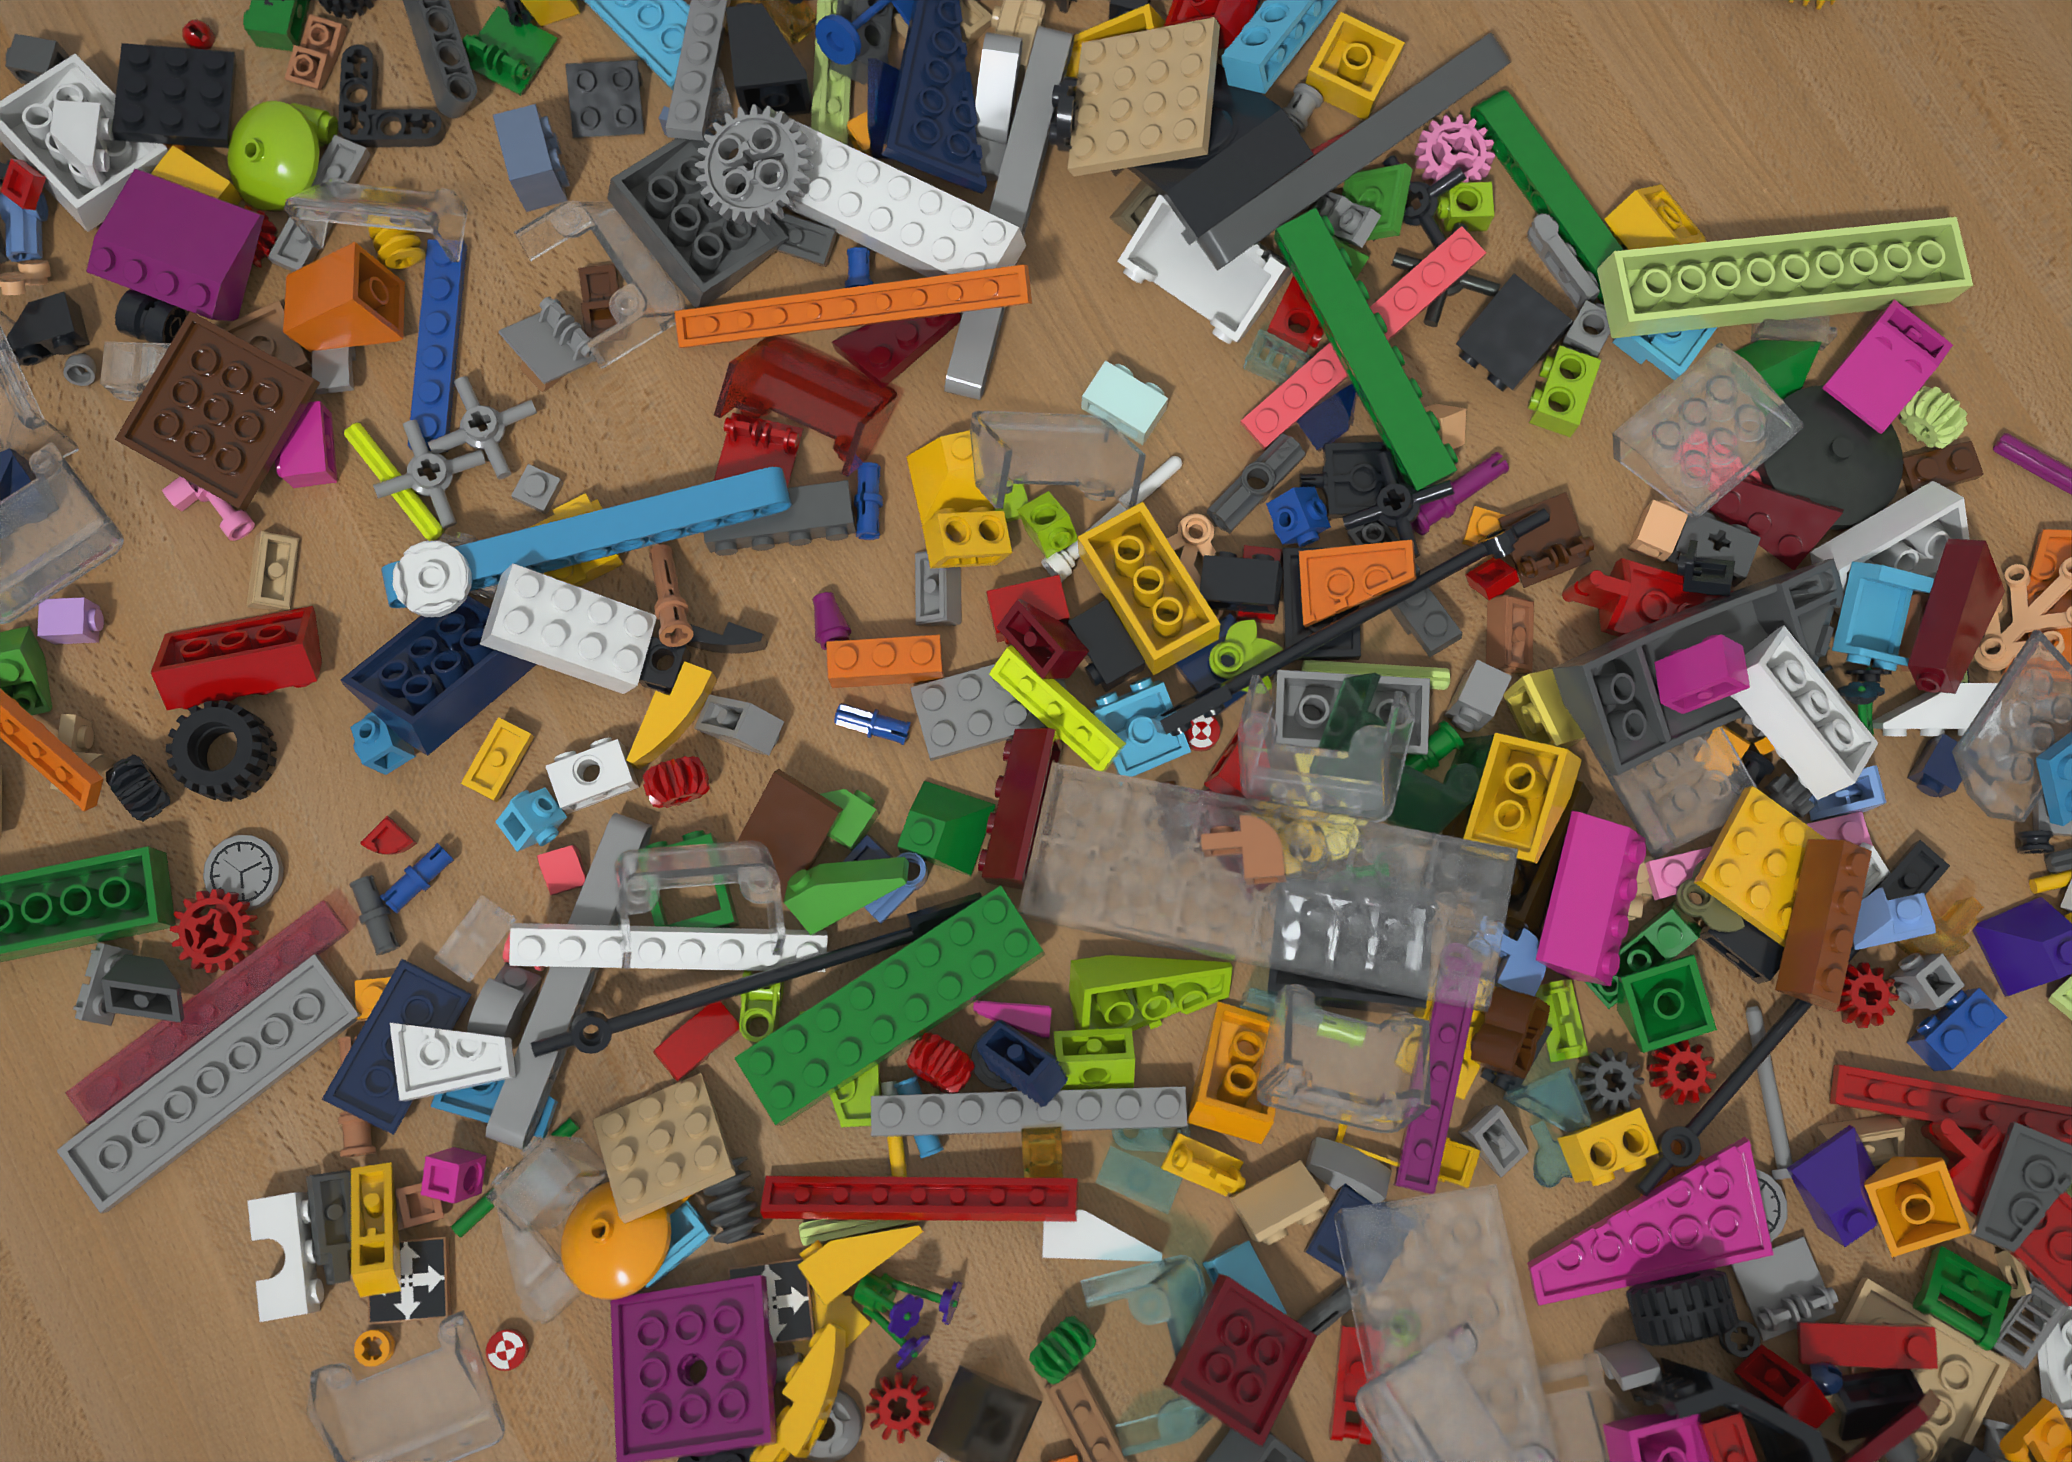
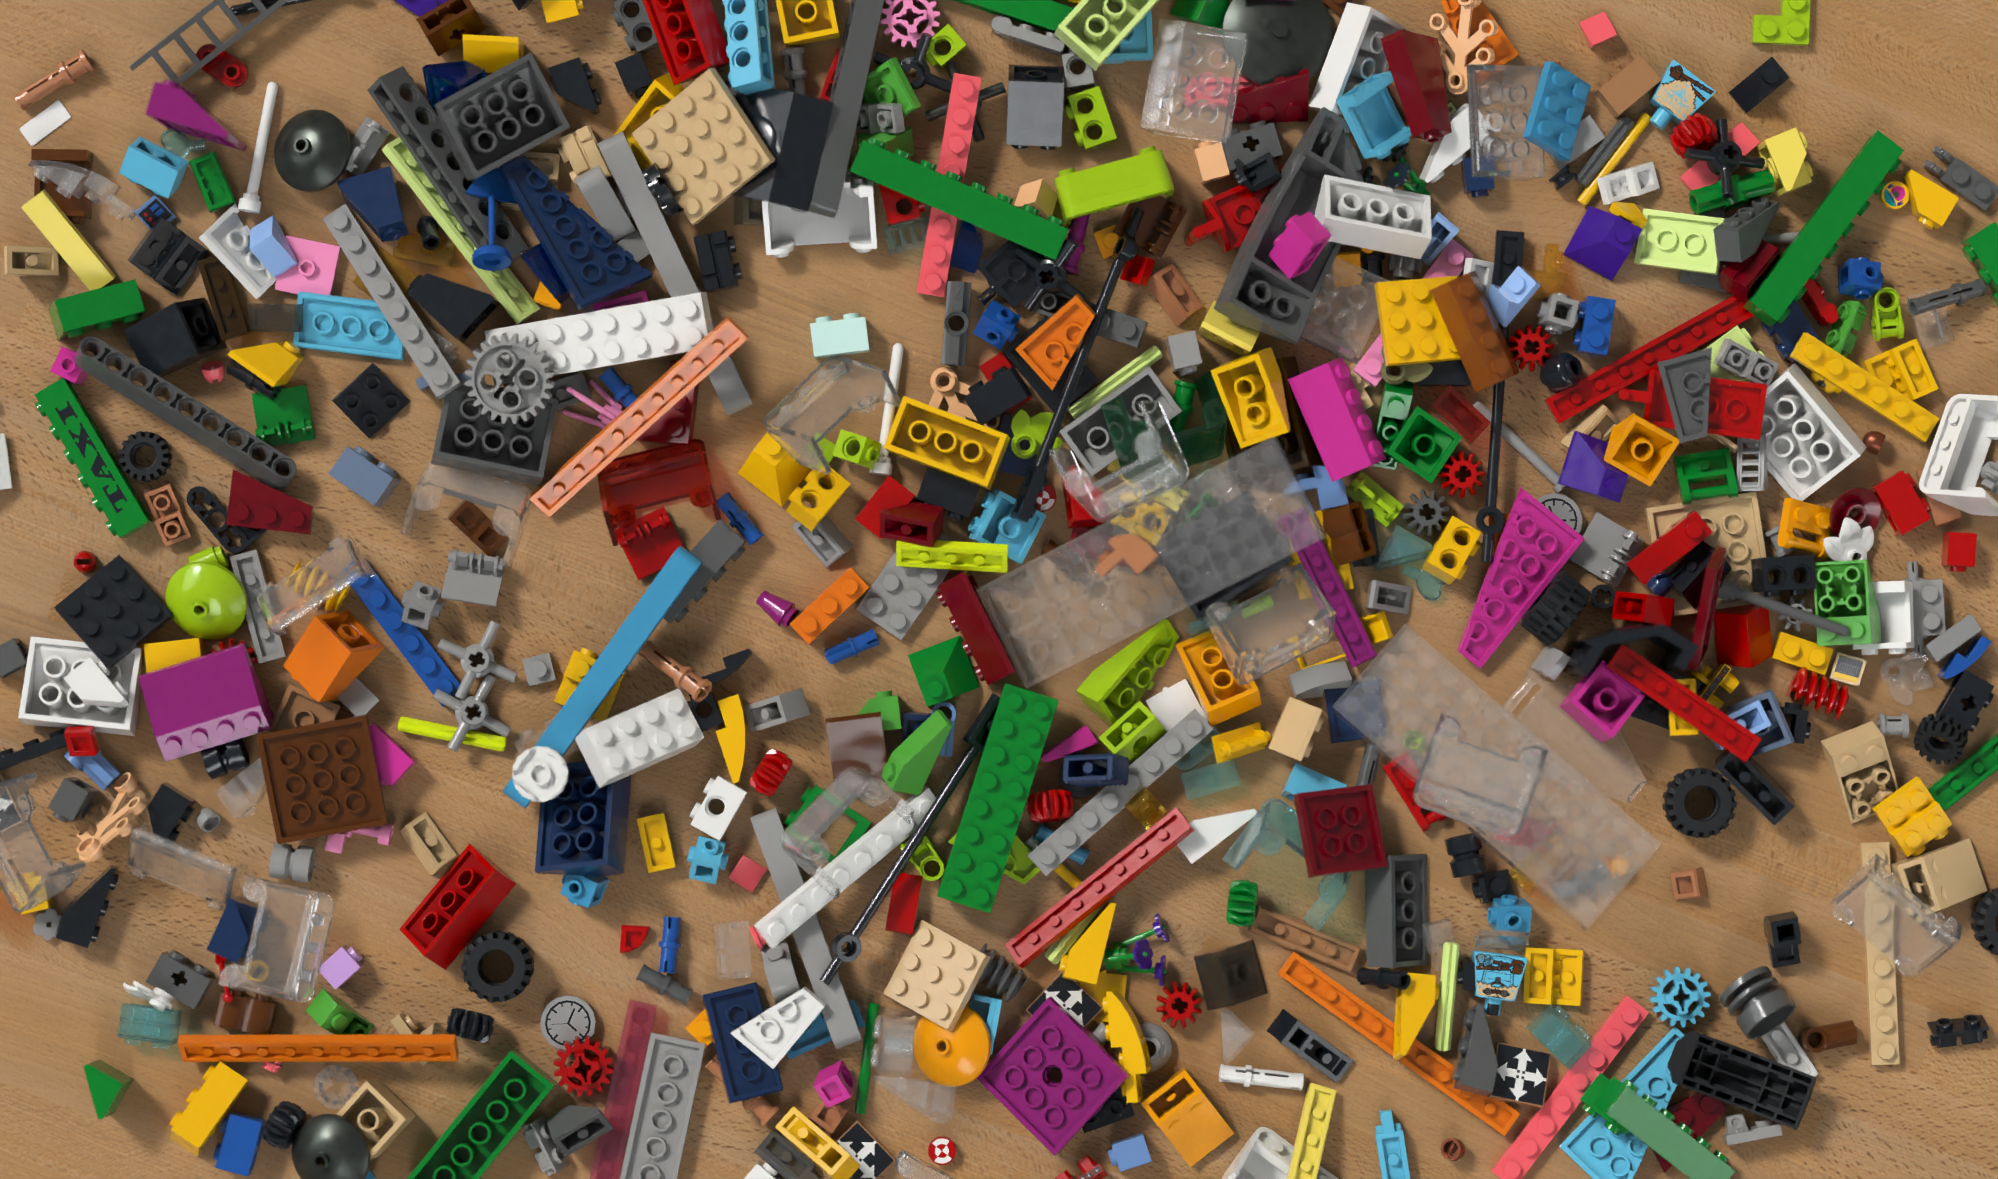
camera: 40 degrees left, 10 degrees up
(118, 476) = (292, 862): none -> light grey wheel
(410, 115) = (263, 507): none -> dark red wing
(474, 327) = (421, 599): none -> light grey brick
(822, 285) = (607, 413): none -> bright pink plant
(1061, 233) = (717, 262): none -> black brick
(1165, 1064) = (1174, 704): none -> white piece
(1542, 461) = (1113, 184): none -> lime windscreen
(1732, 1003) = (1459, 414): none -> clear red brick
(1881, 1048) = (1561, 372): none -> black head

